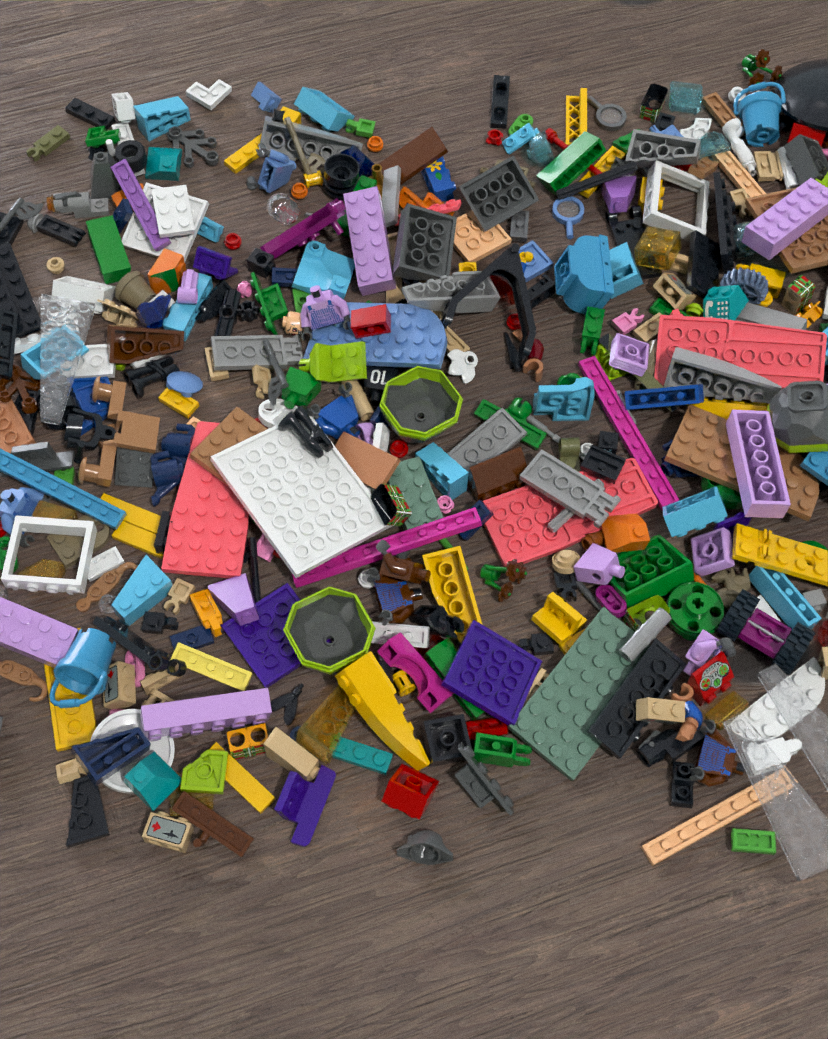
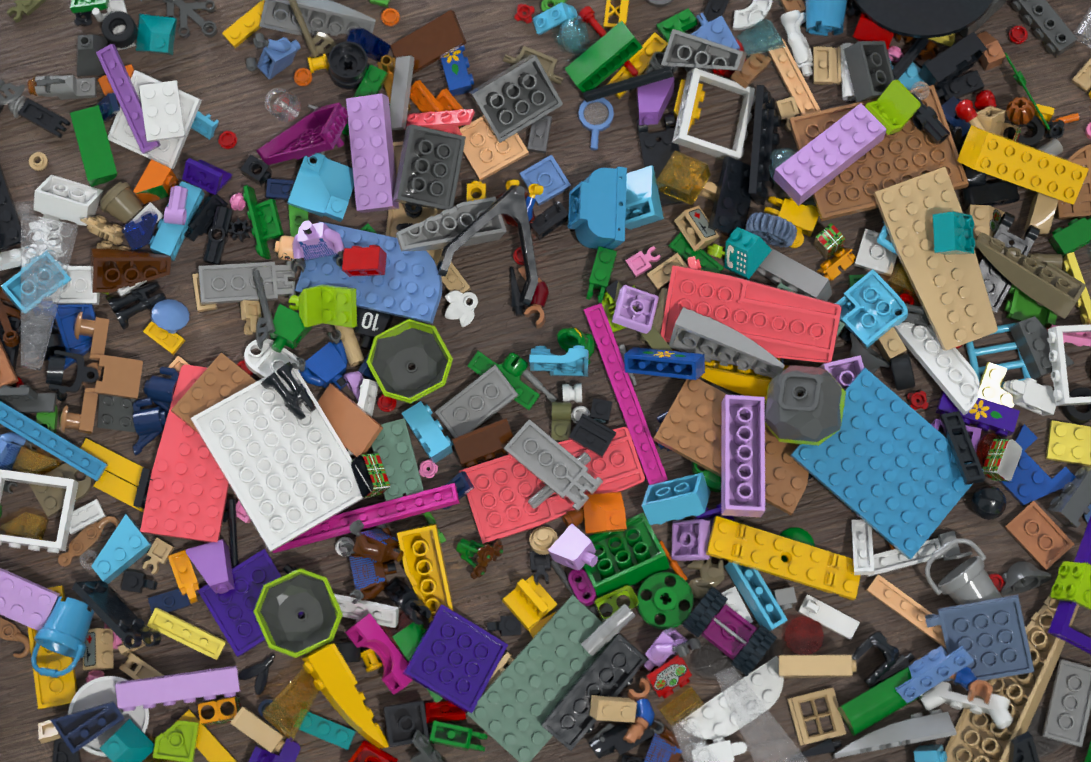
camera: 10 degrees right, 15 degrees up
(577, 431) = (572, 393): none -> white wheel

